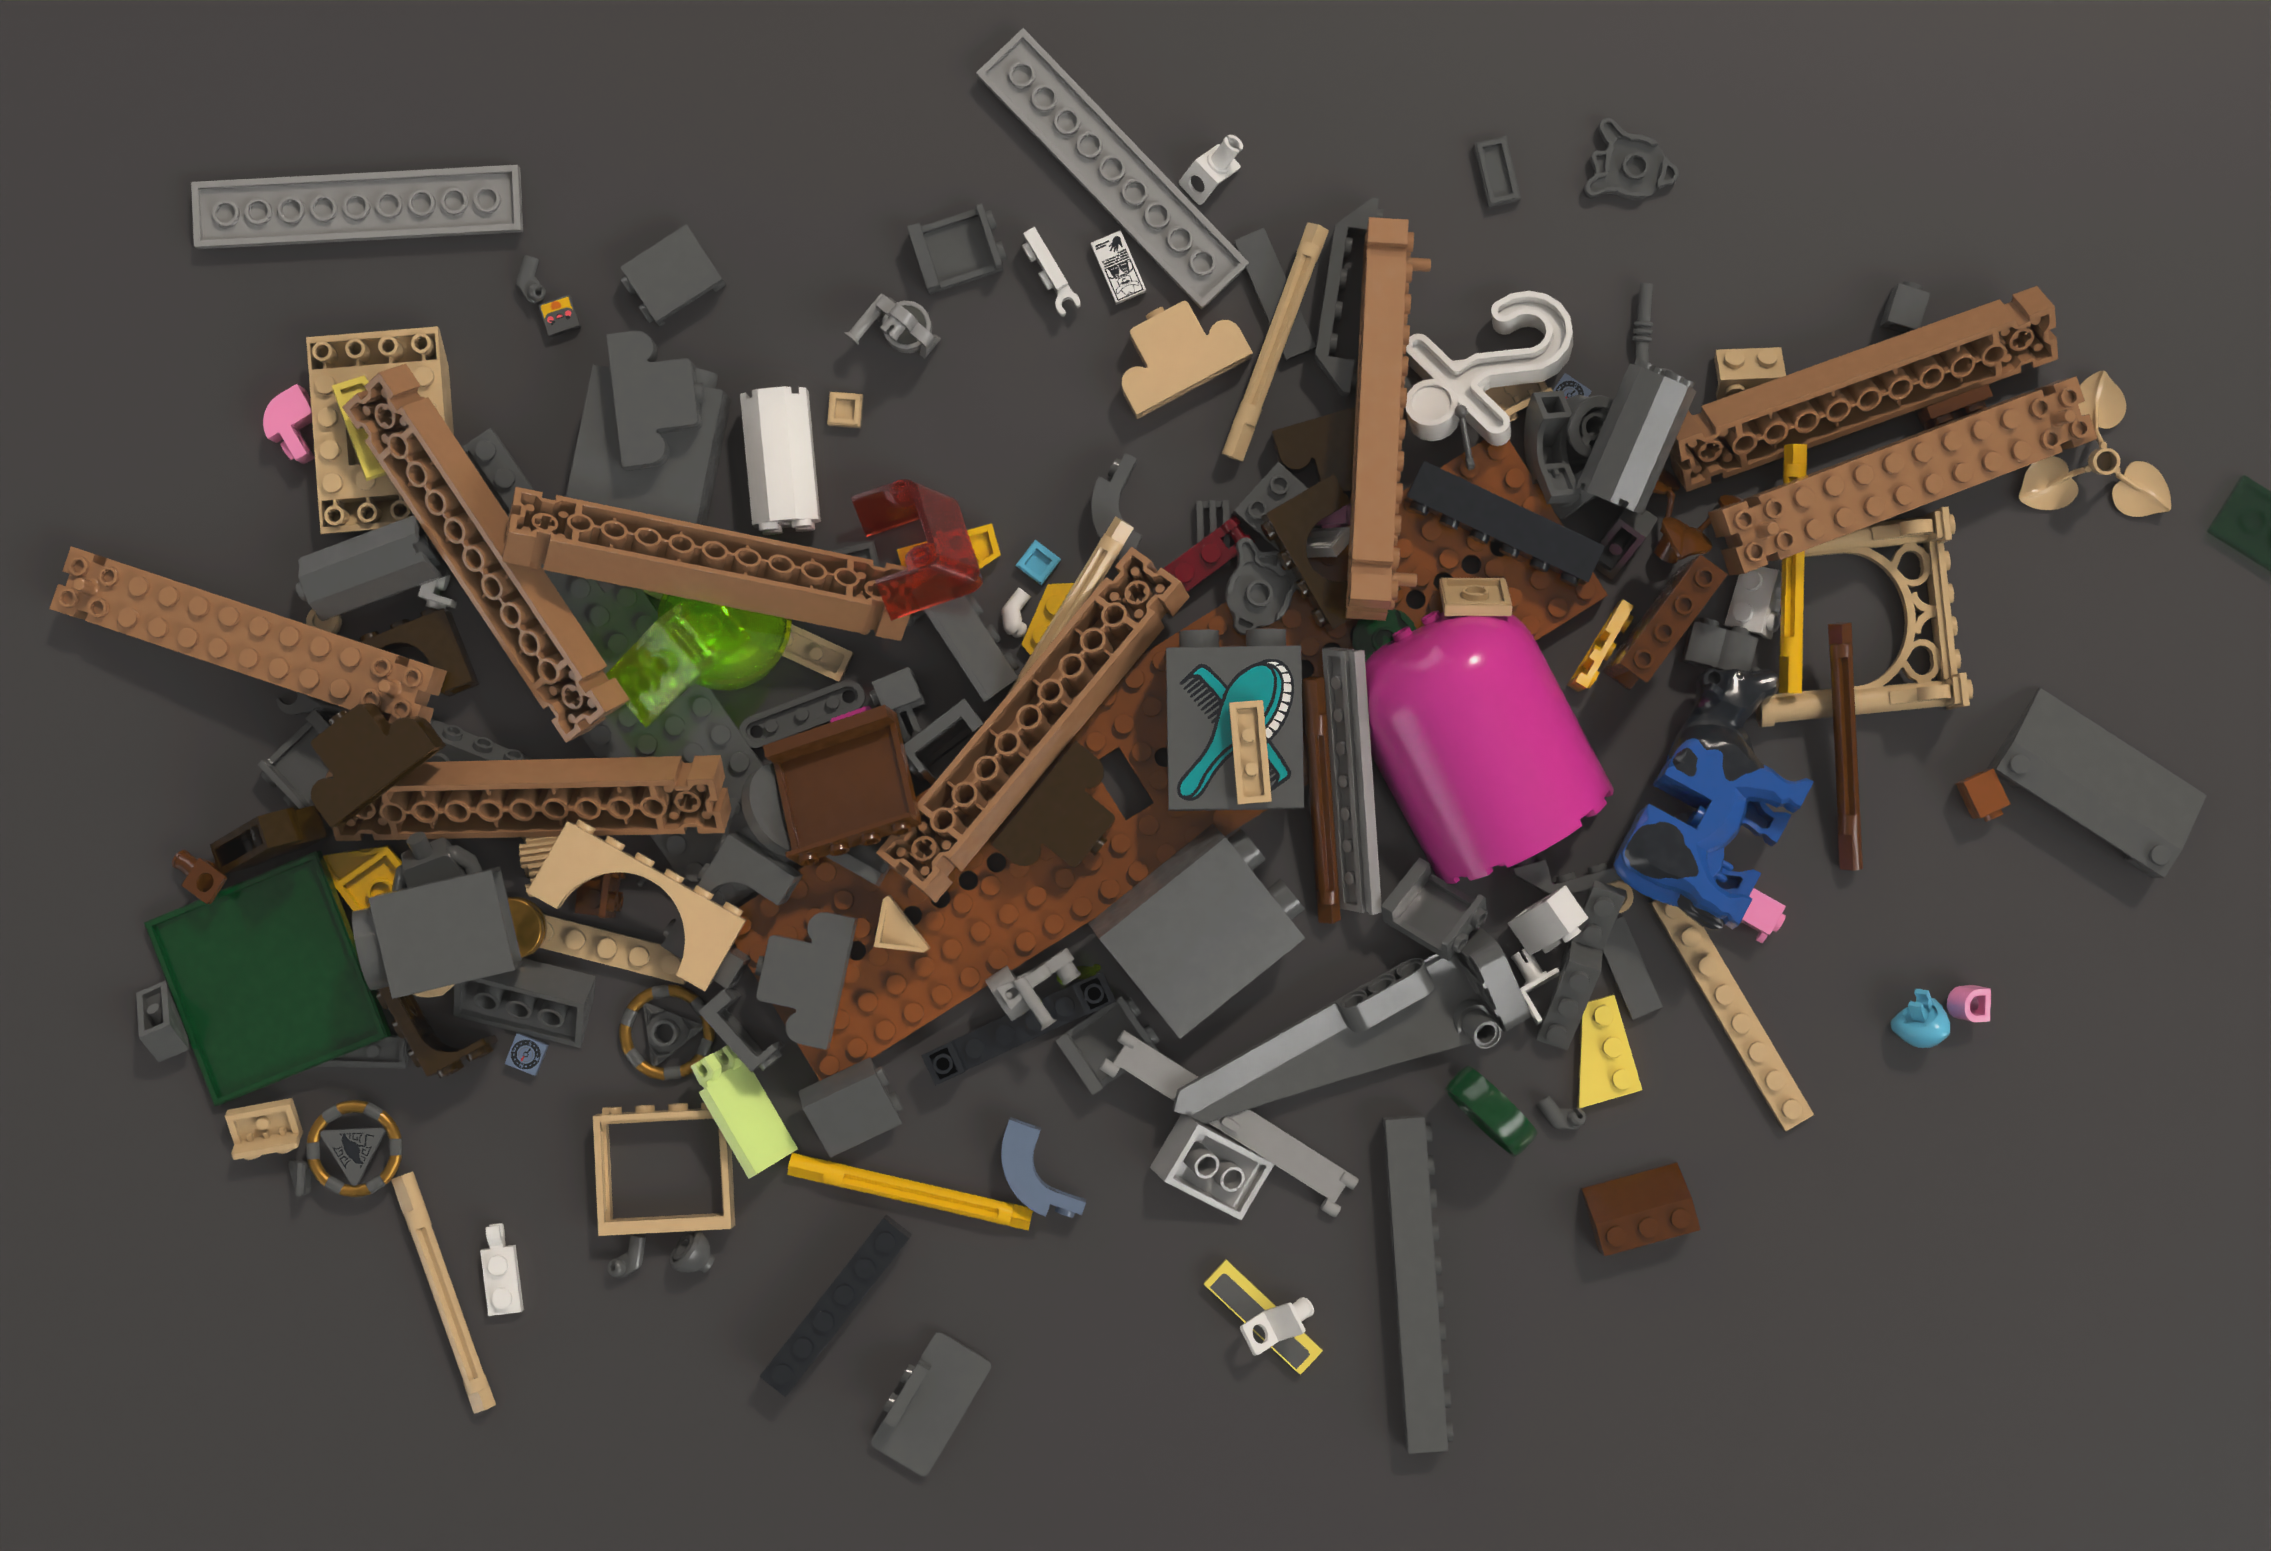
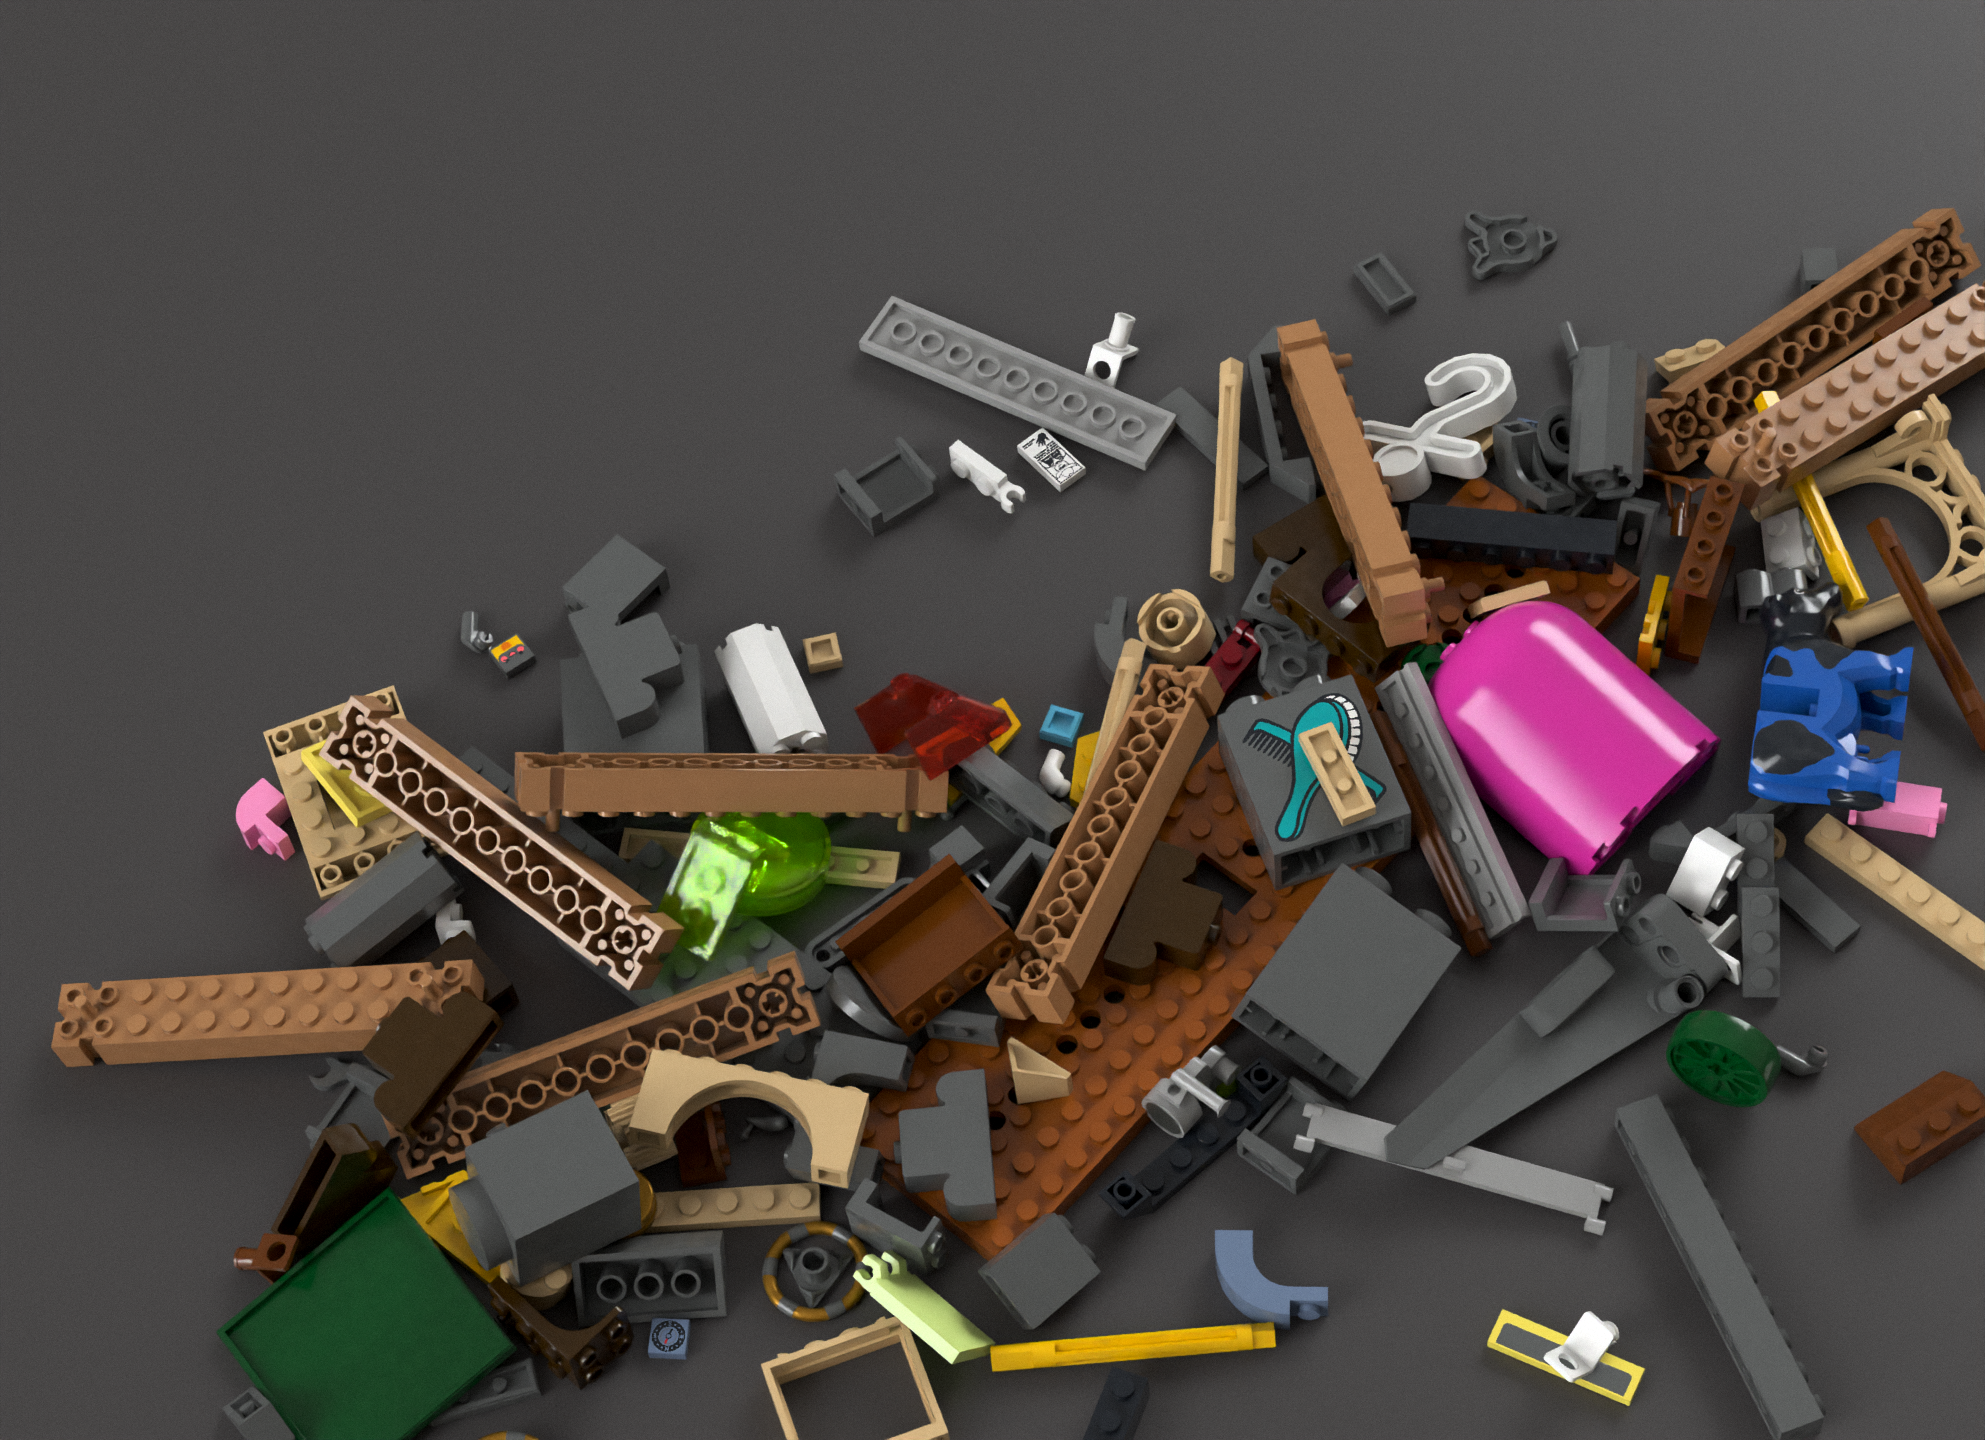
camera: 15 degrees left, 30 degrees down
(357, 207) = (284, 621): light grey plate -> none
(903, 324) = (860, 558): light grey piece -> none
(1151, 508) = (1176, 628): none -> tan brick
(1179, 356) = (1138, 510): tan brick -> none
(1211, 1166) = (1450, 1218): light grey slope -> none
(1461, 412) = (1429, 453): dark grey hinge -> none
(1605, 1055) = (1824, 995): light yellow wing -> none

